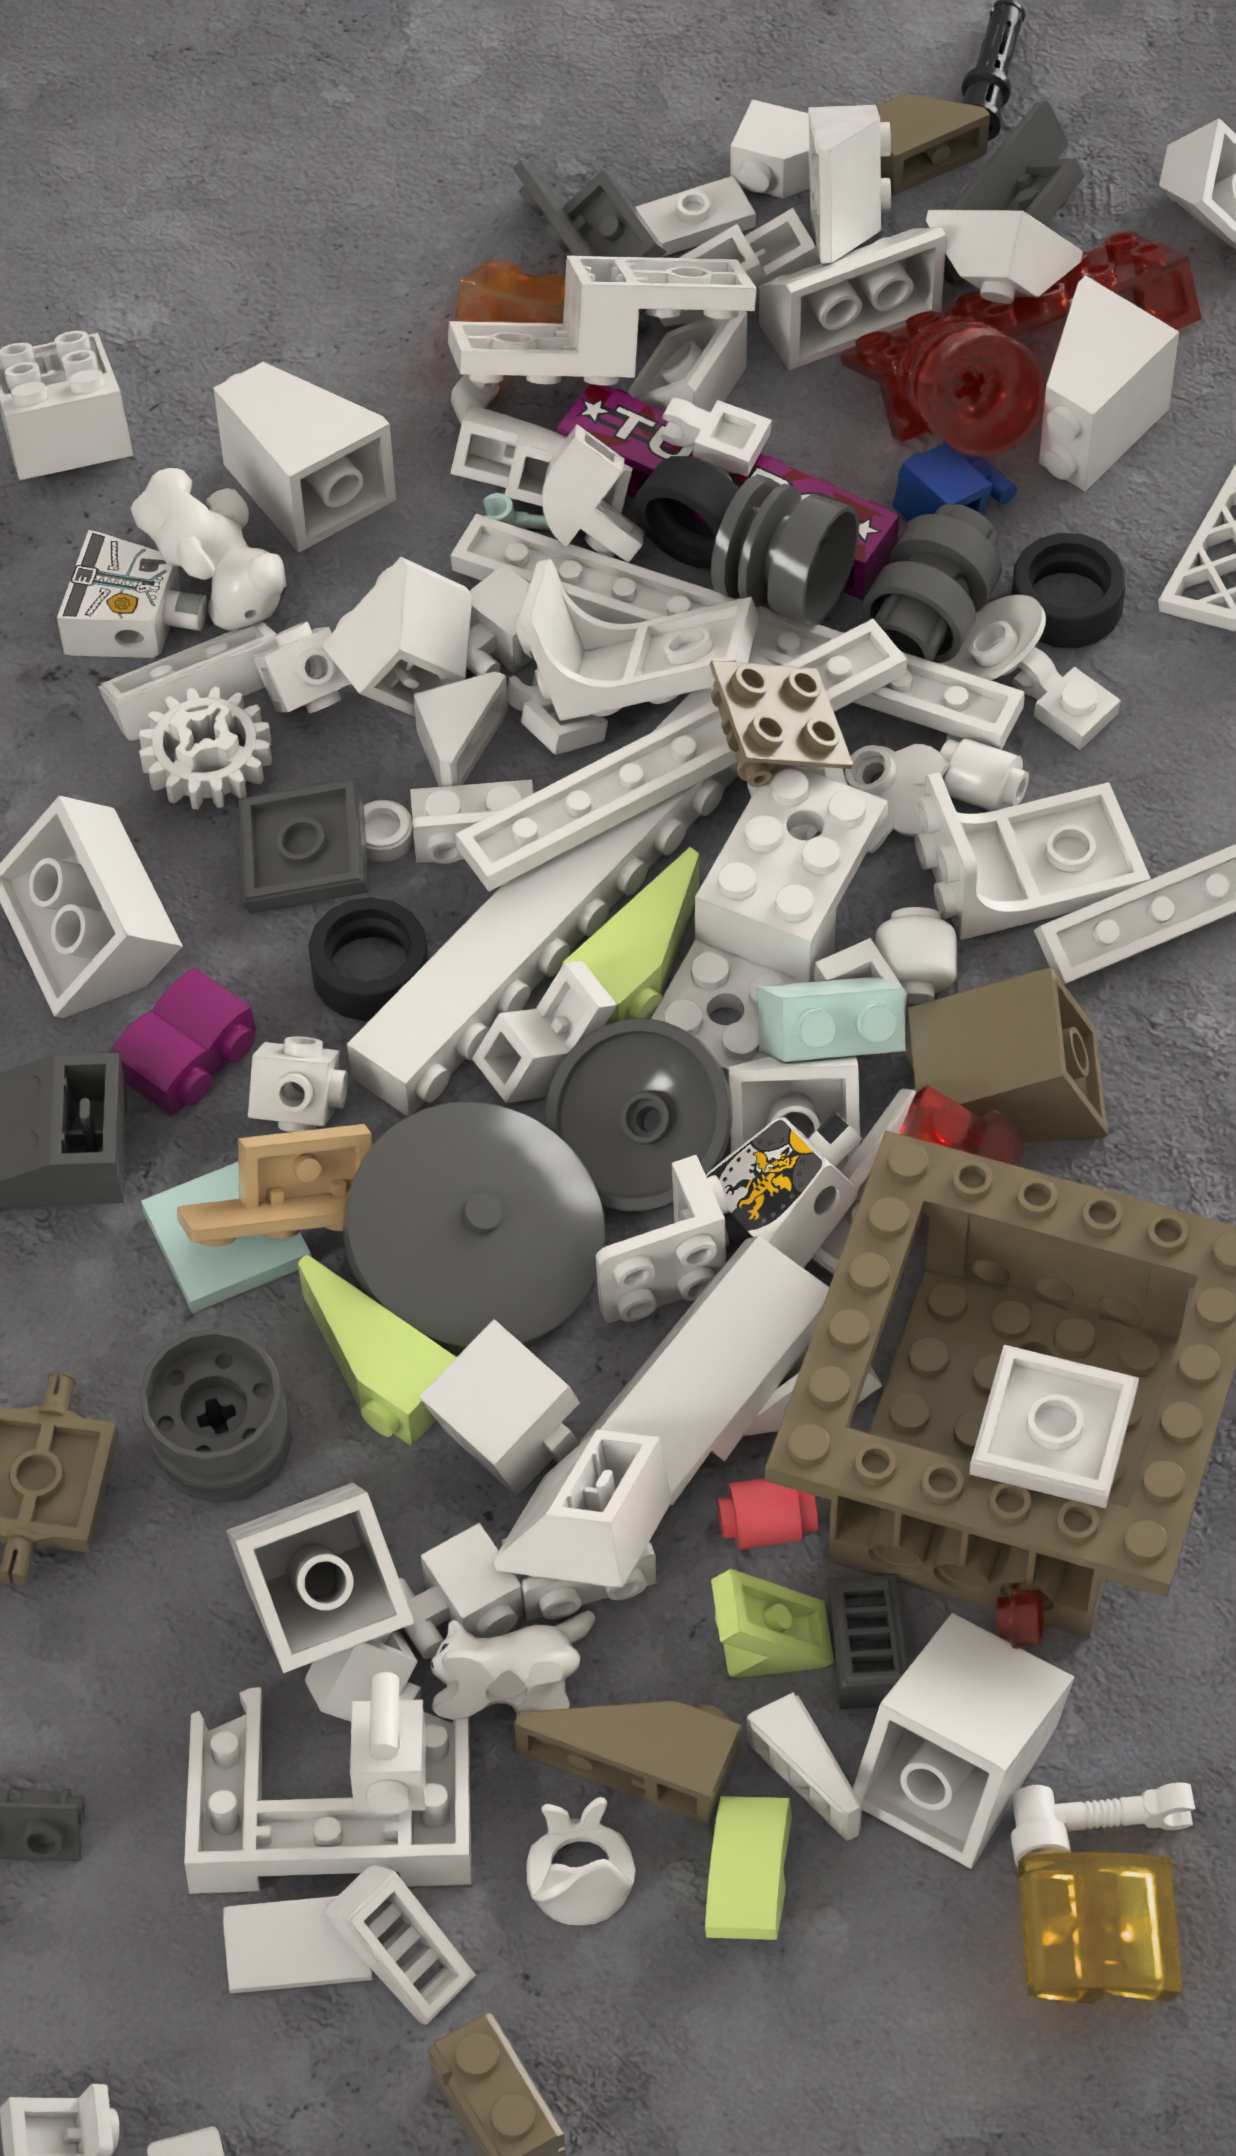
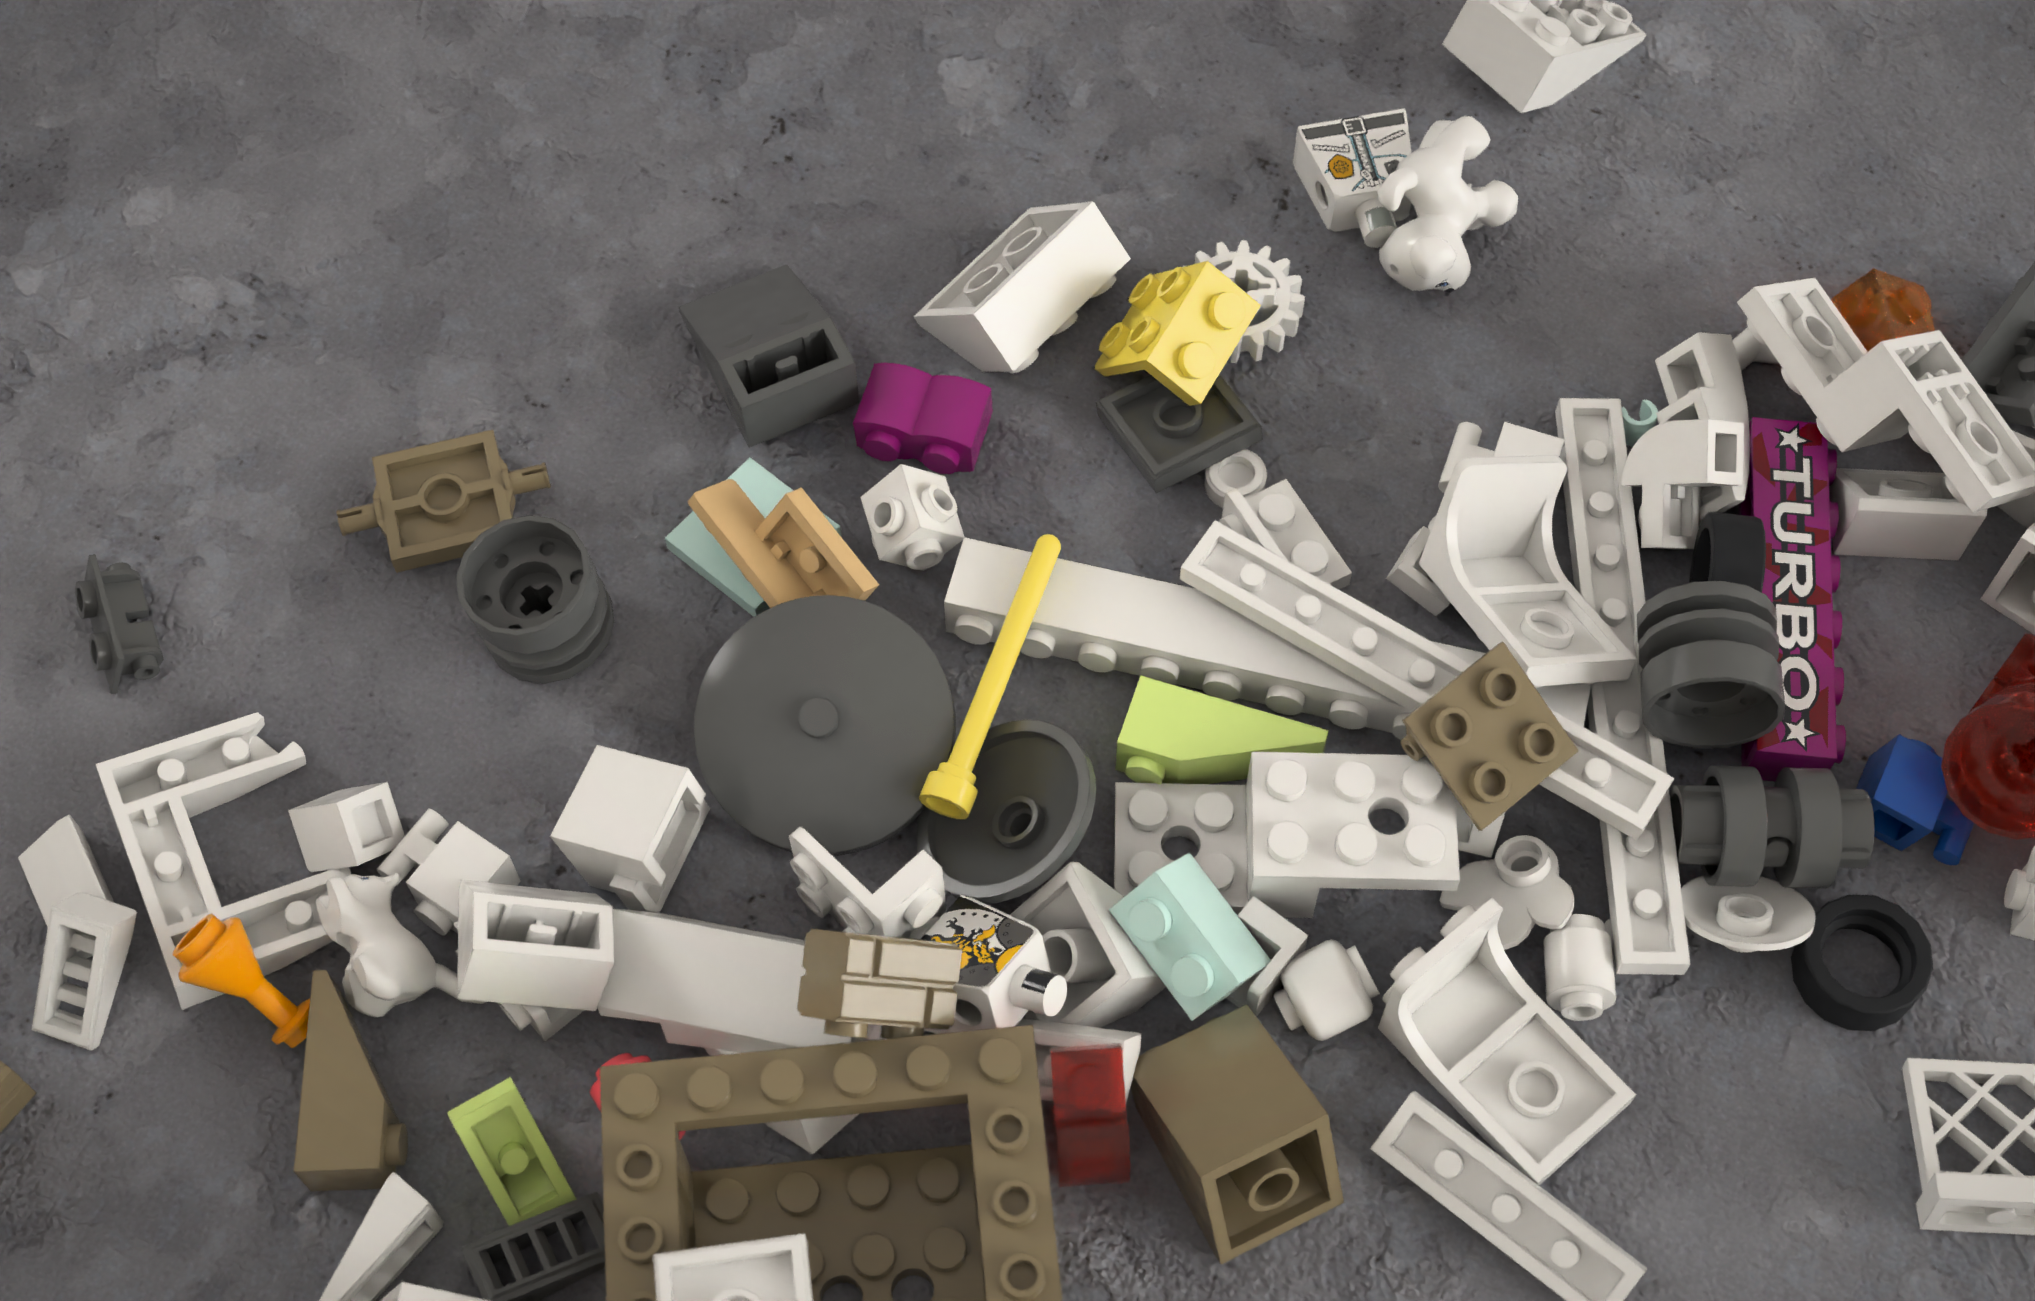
camera: 65 degrees right, 5 degrees up
(216, 662) = (1330, 272): white slope -> none
(217, 798) = (1179, 329): none -> light yellow bracket
(285, 674) = (1360, 336): white brick -> none
(303, 453) = (1585, 230): white slope -> none
(320, 1576) = (397, 741): white slope -> none
(355, 921) = (1093, 483): black tyre -> none
(376, 1352) = (659, 703): yellowish green slope -> none
(388, 1750) = (237, 876): white brick -> none
(404, 636) = (1418, 393): white slope -> none
(459, 723) = (1373, 487): white slope -> none
(465, 1792) = (223, 960): none -> light orange piece
(529, 1045) = (1054, 691): white brick -> none
(584, 1892) = (205, 1128): white piece -> none
(596, 1145) = (951, 787): none -> light yellow piece
(721, 437) = (1818, 558): white plate -> none
(747, 1868) = (255, 1236): yellowish green slope -> none
(796, 1224) = (878, 982): none -> dark tan brick
(1067, 704) = (1722, 1022): white plate -> none

